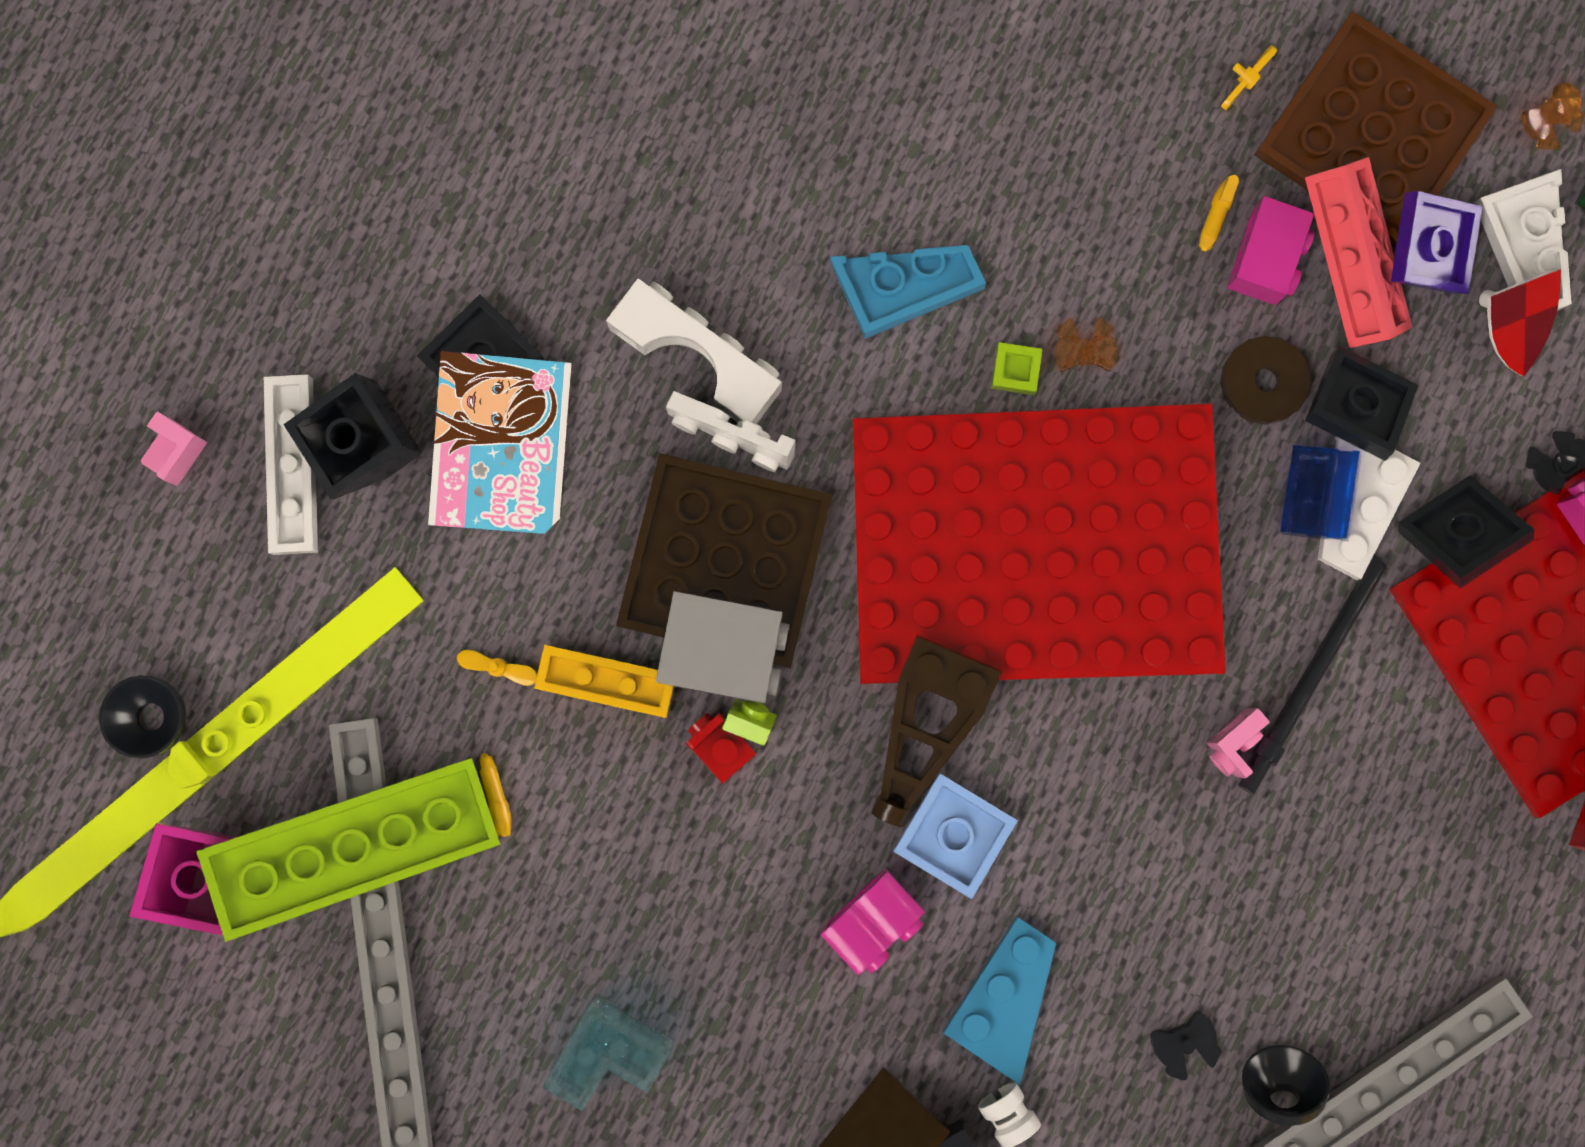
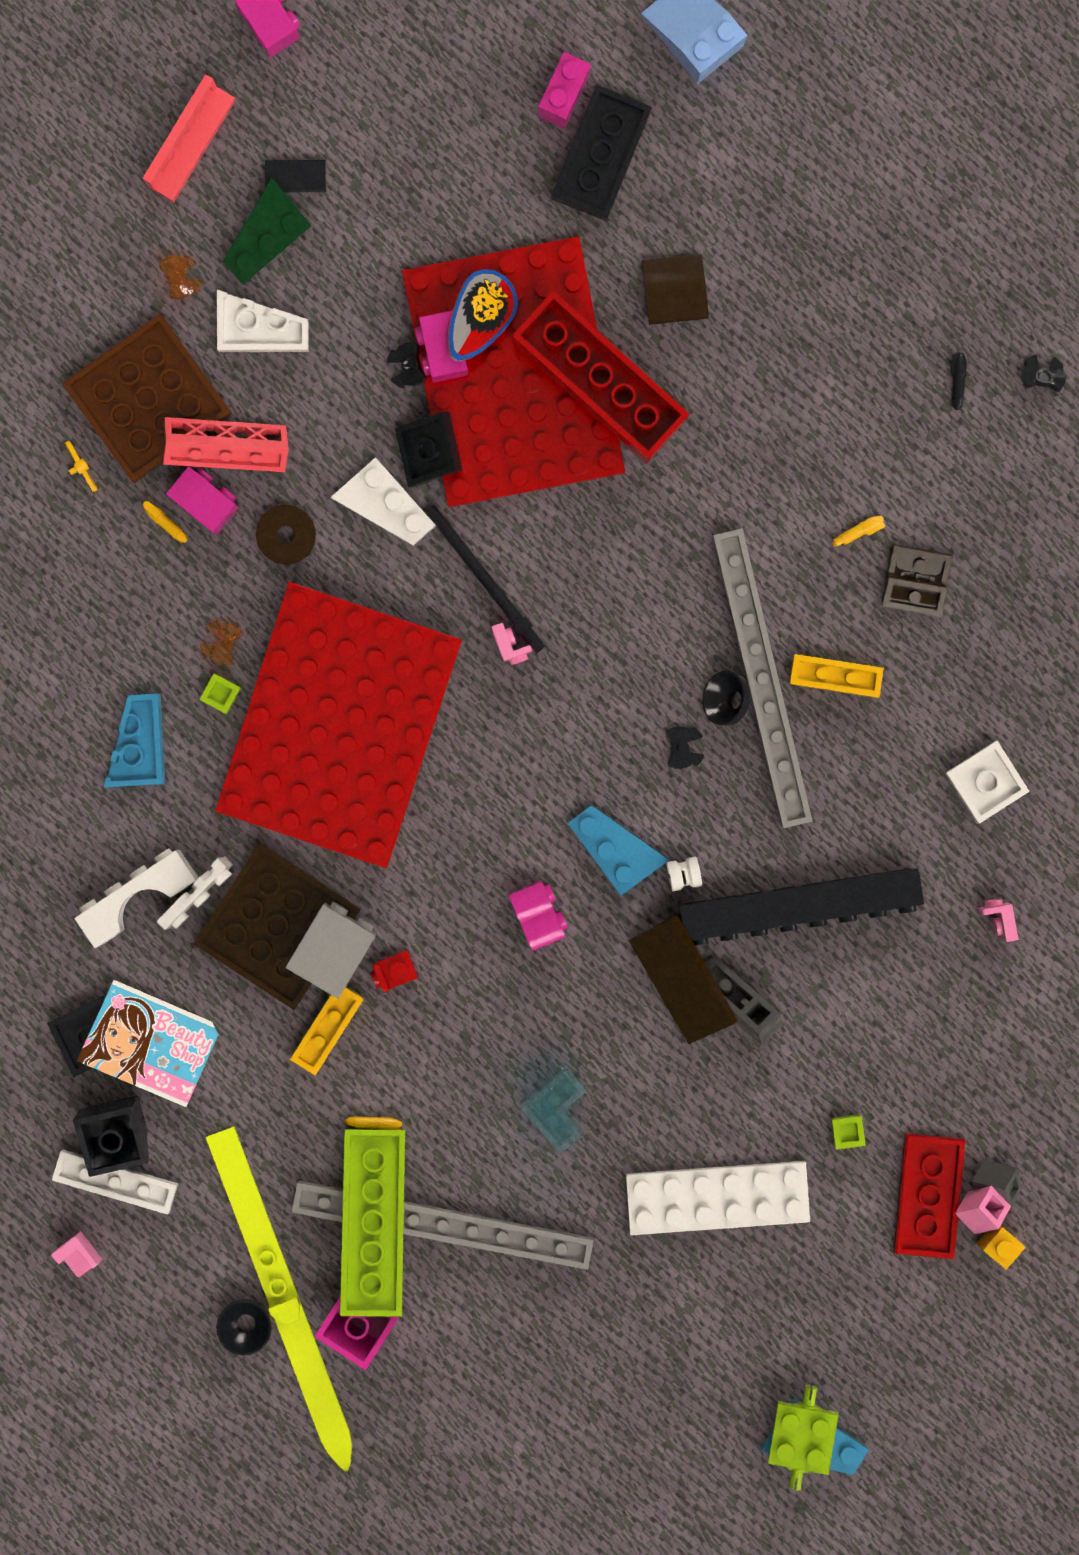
camera: 70 degrees left, 5 degrees up
(497, 667) = (293, 1094): yellow piece -> none
(750, 721) = (385, 946): lime plate -> none
(950, 676) = (400, 814): dark brown plate -> none
(955, 835) = (502, 844): light blue plate -> none
(1320, 493) = (371, 530): clear blue plate -> none
(1362, 403) = (323, 481): black plate -> none
(1436, 243) = (237, 392): plate -> none
(1522, 318) = (306, 357): shield -> none

